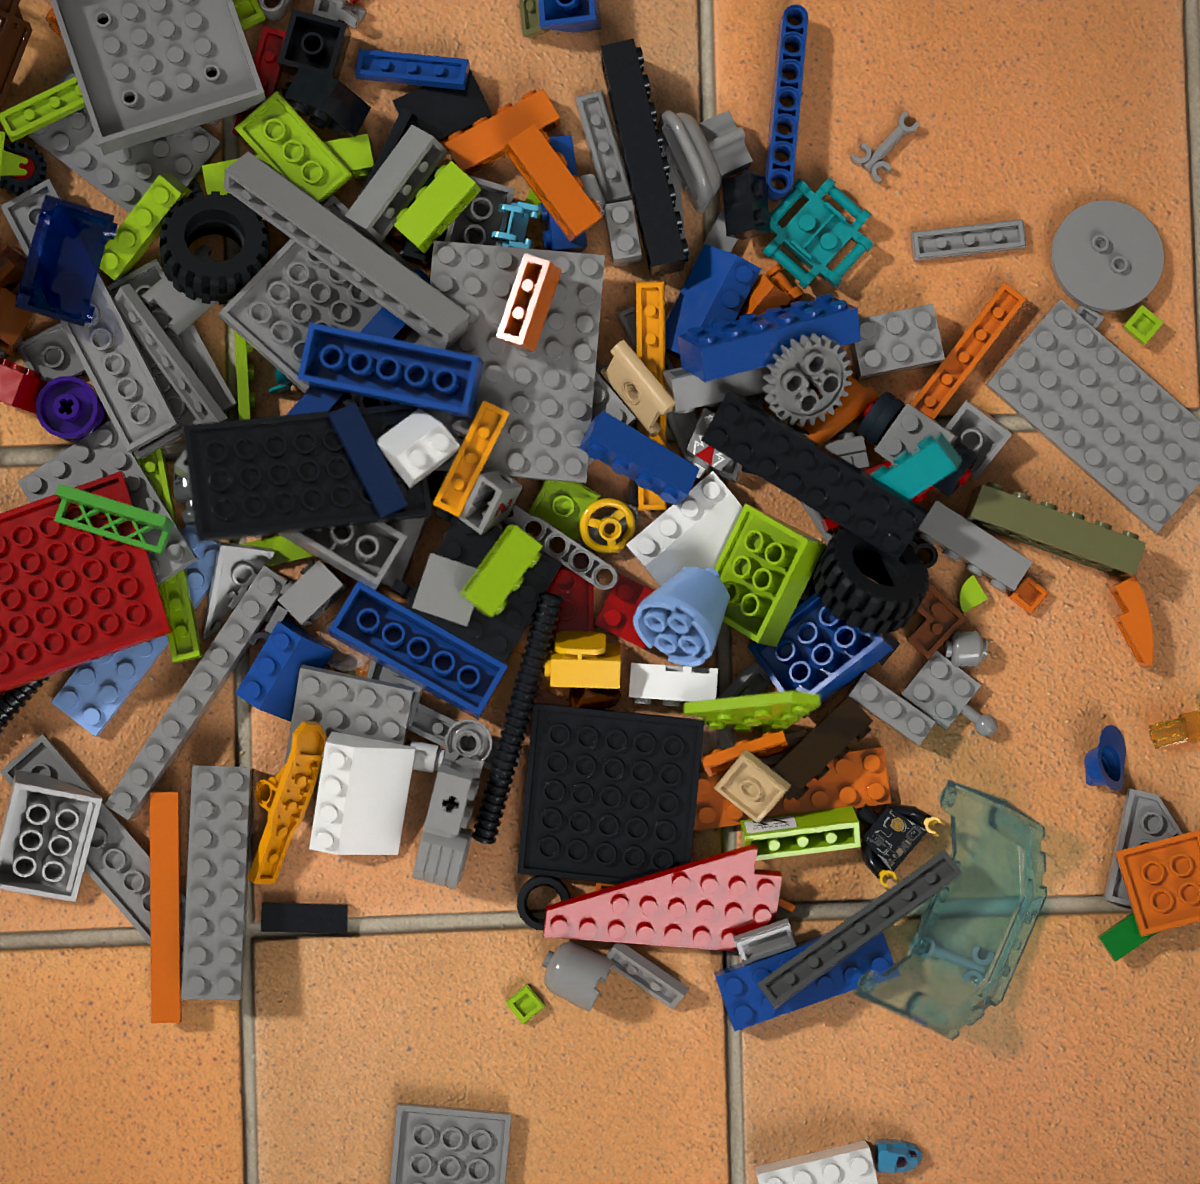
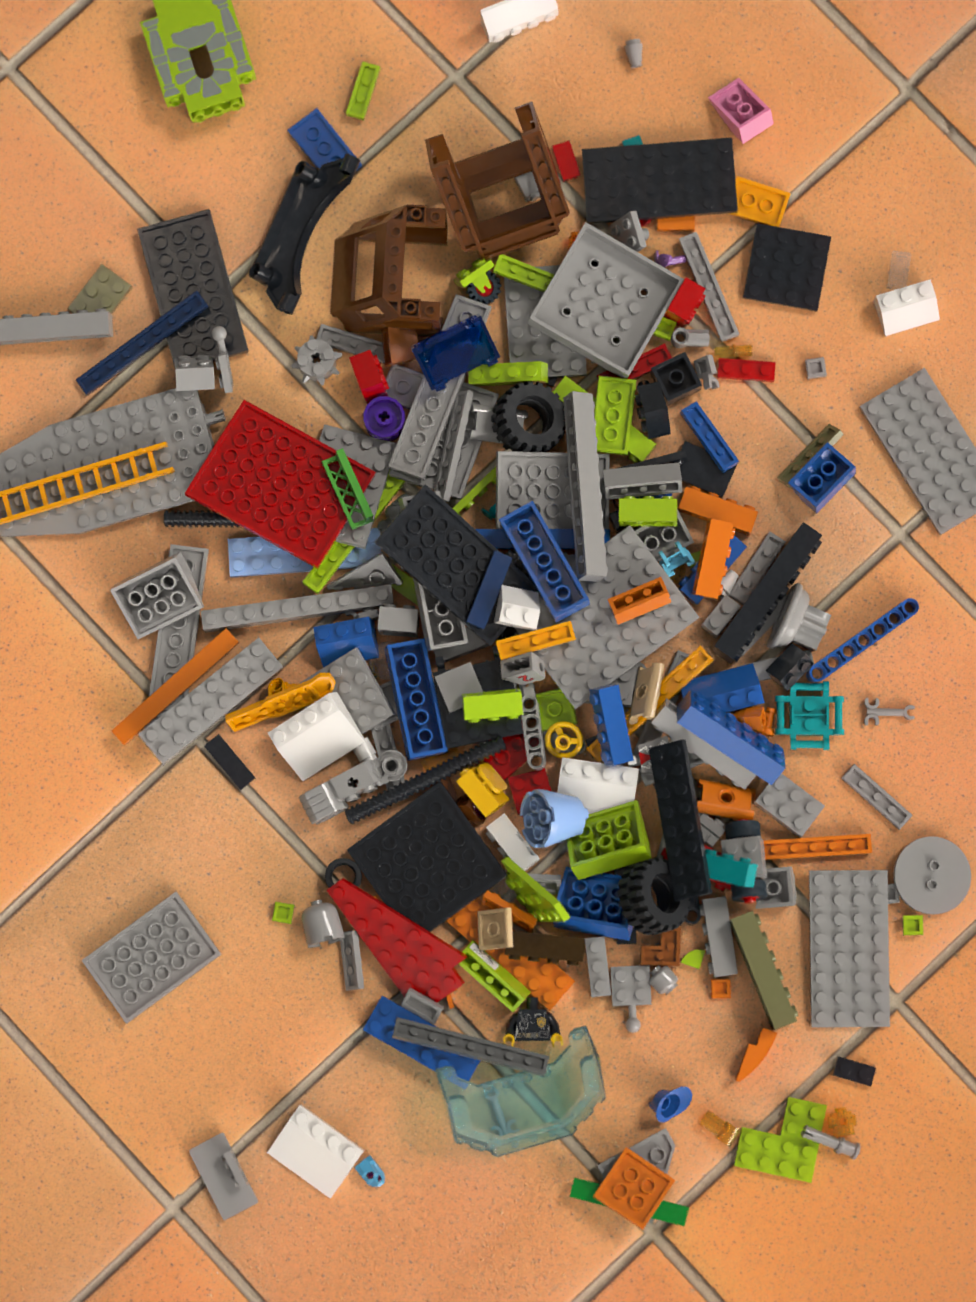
camera: 50 degrees right, 5 degrees down
(828, 362) = (707, 772): light grey gear -> none

